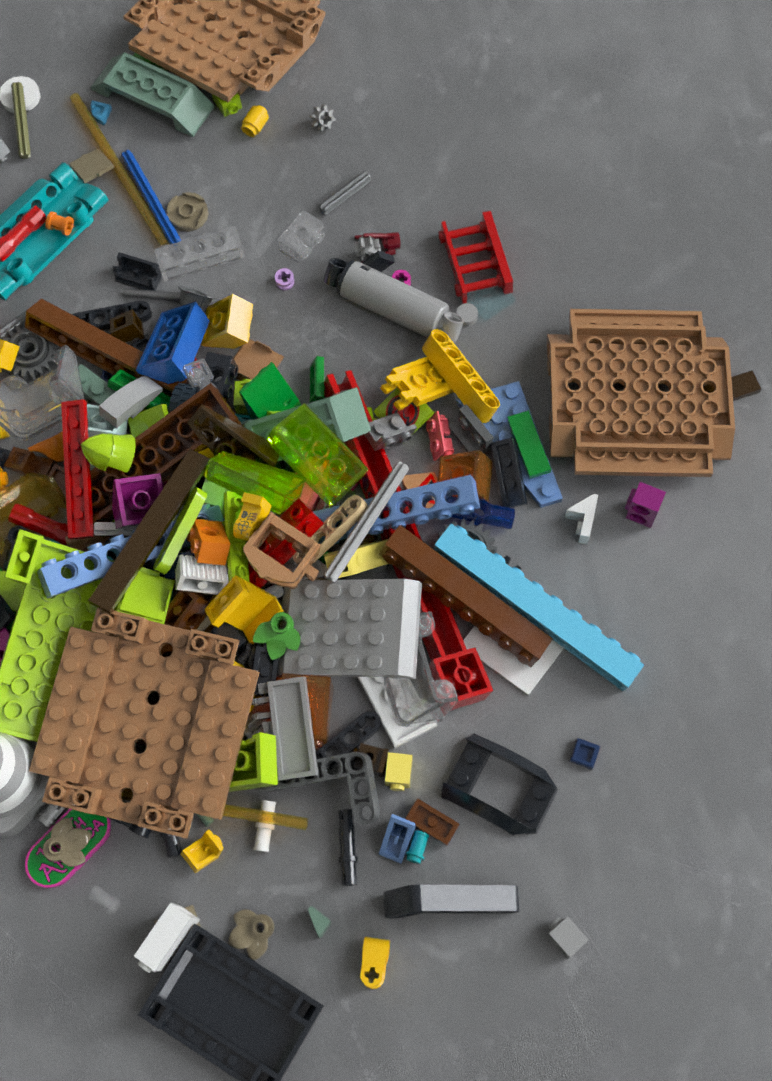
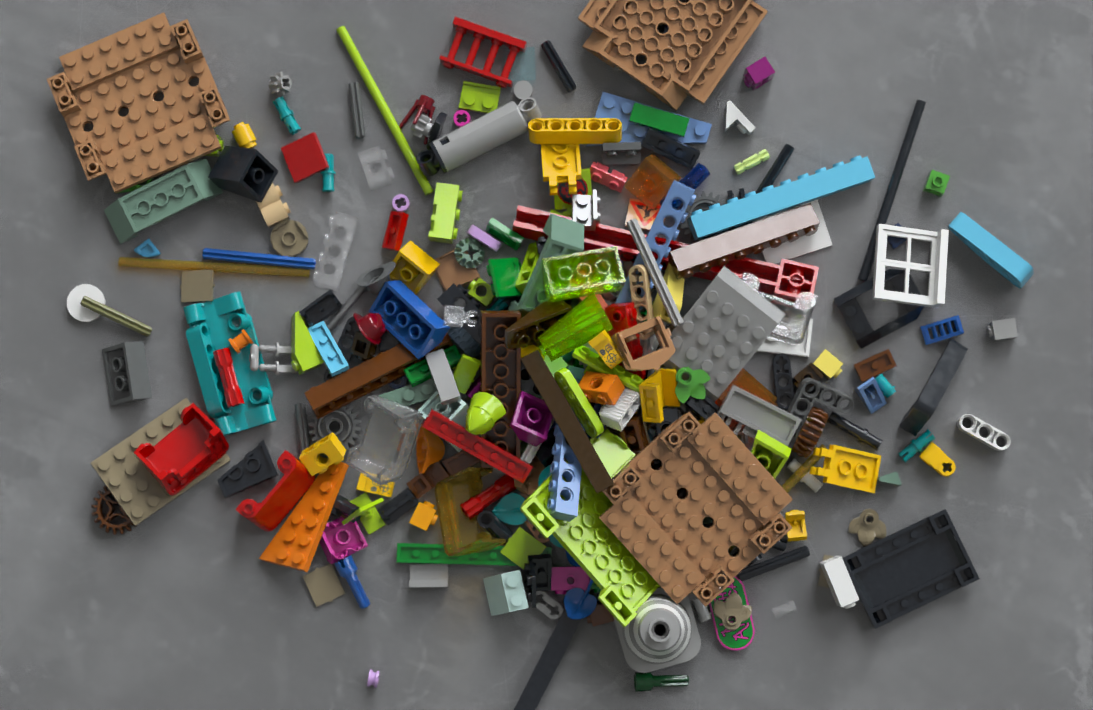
camera: 60 degrees left, 15 degrees up
(52, 242) = (254, 358): none -> light grey piece
(88, 278) = (303, 349): none -> lime slope
(100, 297) = (328, 349): none -> medium azure plate
(141, 316) = (371, 326): none -> dark red piece
(148, 855) = (773, 563): none -> black axle
(207, 176) = (272, 207): none -> tan brick
(218, 134) = (243, 172): none -> black slope
(262, 286) = (395, 230): none -> red plate
(269, 176) = (305, 157): none -> red tile
(269, 204) = (328, 174): none -> teal axle
(279, 353) = (464, 259): none -> sand green gear
(298, 141) = (286, 115): none -> teal pin
(298, 317) = (445, 213): none -> lime wedge
(300, 367) = (484, 238): none -> lavender beam
(300, 865) = (848, 468): none -> yellow tile
(312, 797) = (810, 432): none -> reddish brown gear
(363, 212) = (384, 109): none -> lime piece
(375, 926) = (916, 446): none -> teal pin
(433, 281) = (479, 97): none -> lime plate
(433, 980) = (993, 433): none -> white beam
(513, 329) = (558, 66): none -> black axle
(541, 875) = (959, 330): none -> blue slope
(553, 560) = (751, 161): none -> yellowish green axle
(570, 587) = (776, 167): none -> black axle
(579, 816) = (936, 269): none -> white window
(628, 717) = (893, 186): none -> black piece
(643, 865) = (992, 250): none -> medium azure beam
(670, 756) = (936, 183): none -> bright green brick

